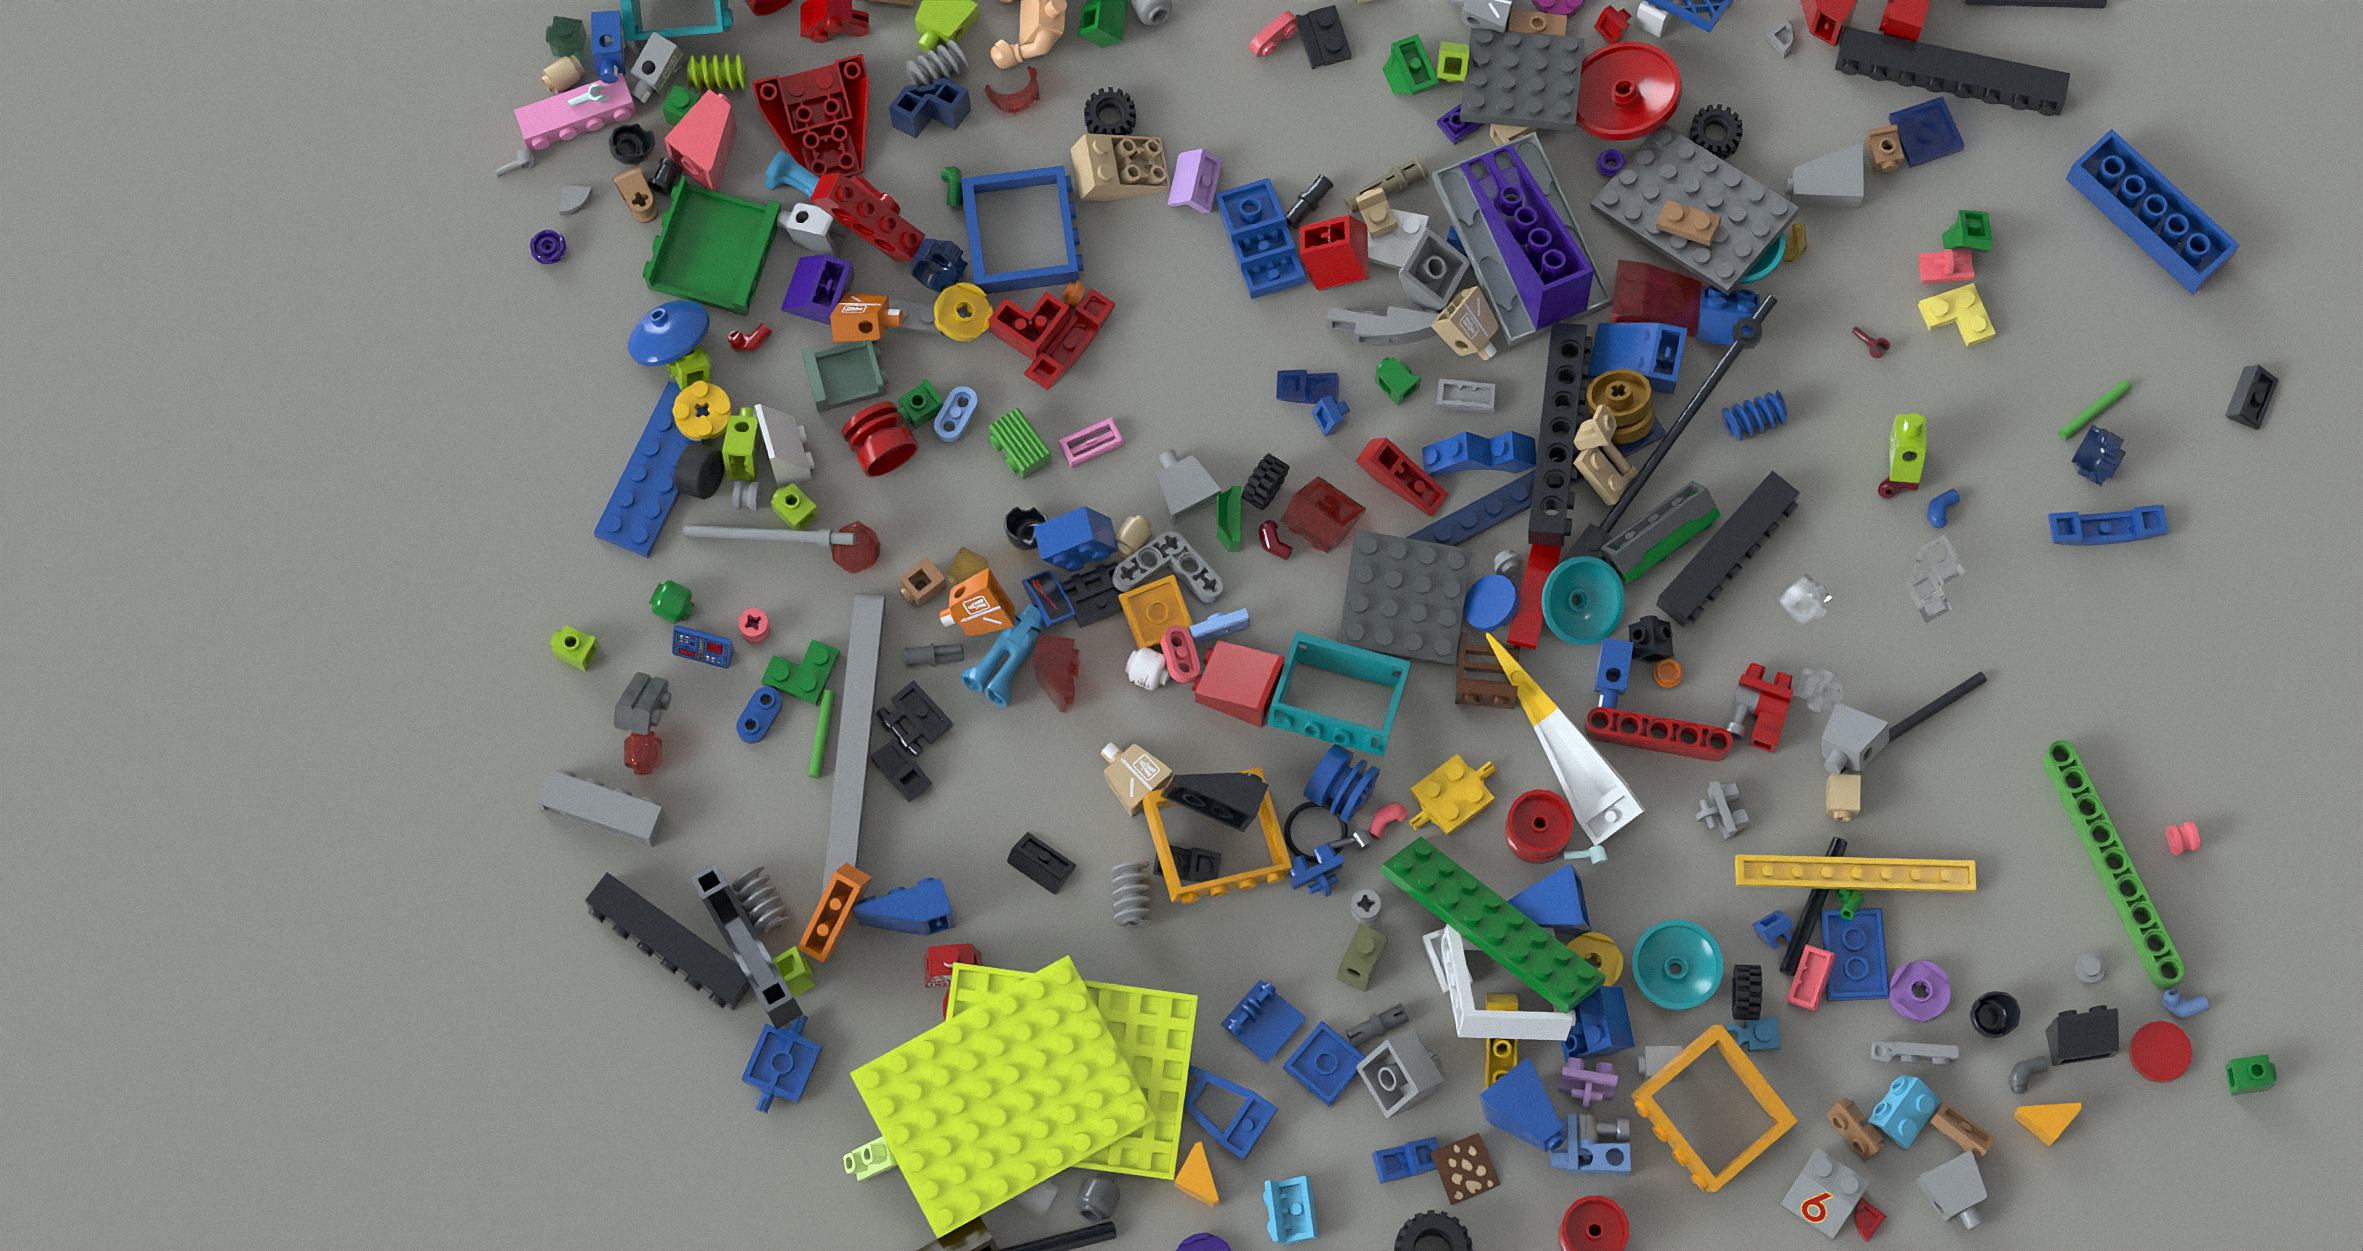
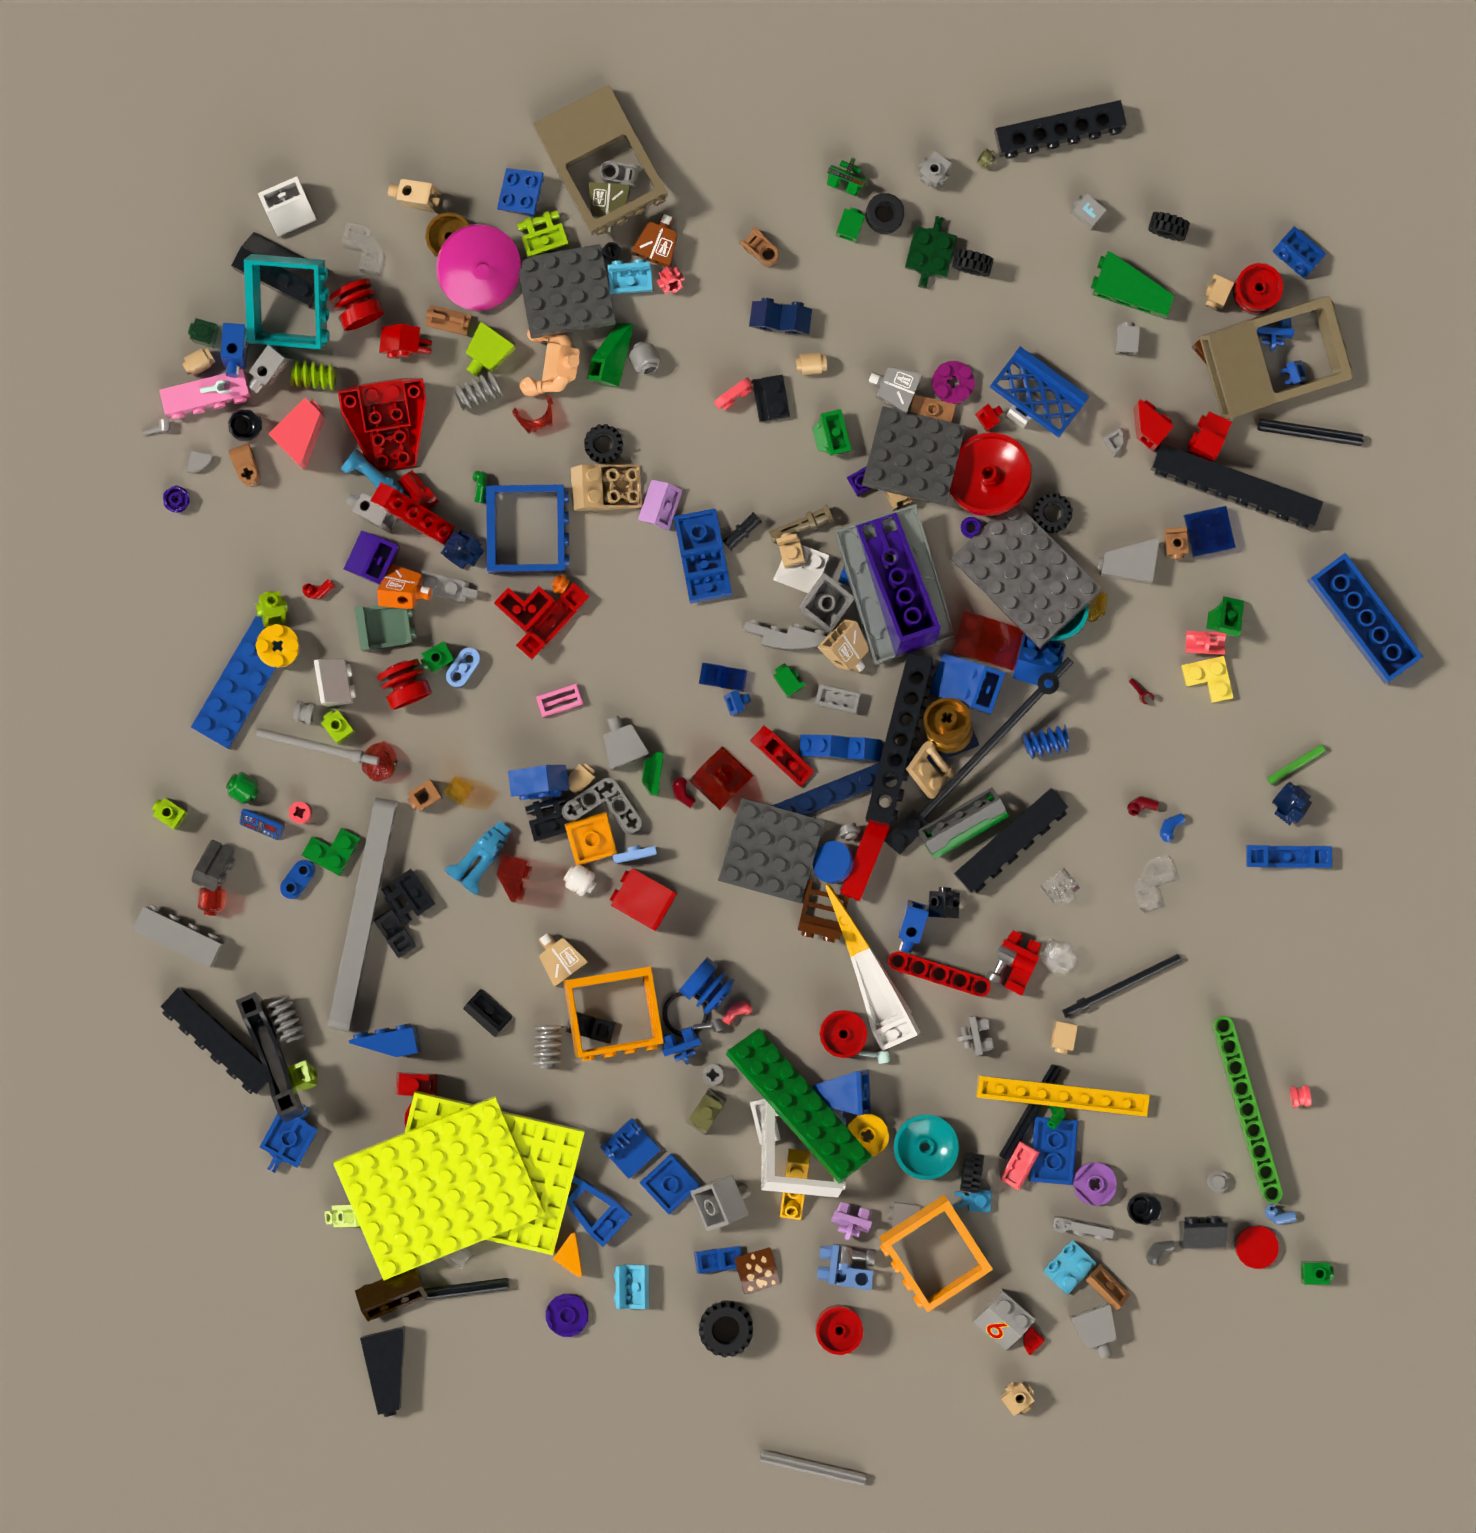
camera: 10 degrees right, 15 degrees up
(665, 176) = (267, 453): black bush -> none
(668, 332) = (258, 581): blue dish -> none
(678, 104) = (285, 400): green brick -> none
(699, 470) = (271, 690): black tyre -> none
(712, 248) = (297, 513): green panel -> none
(742, 446) = (301, 682): lime torso -> none
(821, 734) = (341, 898): bright green bar -> none
(834, 912) = (335, 1039): orange brick -> none
(933, 654) = (427, 849): dark grey axle -> none
(939, 101) = (461, 421): dark blue brick -> none
(949, 320) = (479, 603): yellow plate -> none
(979, 605) = (463, 821): orange torso -> none
(1019, 444) = (506, 696): bright green brick -> none
(1020, 525) = (502, 761): black hair -> none
(1049, 598) = (514, 818): slope -> none
(1097, 1198) = (498, 1261): dark grey head -> none
(1182, 656) = (604, 875): coral plate -> none
(1220, 796) = (625, 995): black slope -> none
(1265, 481) = (681, 750): black tyre -> none
(1335, 251) = (756, 578): red slope -> none
(1347, 661) = (723, 892): teal window -> none
(1377, 1025) = (709, 1161): dark grey pin -> none
(1452, 61) = (864, 434): lime brick -> none
(1452, 795) = (785, 1000): yellow plate -> none
(1523, 1108) = (804, 1239): blue slope -> none
(1597, 430) = (925, 747): tan bracket -> none
(1598, 600) = (906, 876): teal dish -> none
(1600, 1026) = (866, 1184): blue slope -> none
(1668, 673) = (953, 928): orange plate -> none
(1688, 222) = (1019, 590): medium nougat plate -> none
(1773, 926) = (998, 1125): blue tile -> none
(1846, 1118) = (1039, 1285): medium nougat hinge -> none
(1852, 739) = (1075, 997): light grey torso -> none
(1907, 435) = (1152, 779): lime torso -> none
(2047, 1120) = (1170, 1288): light orange slope -> none
(2252, 396) = (1413, 768): black slope -> none

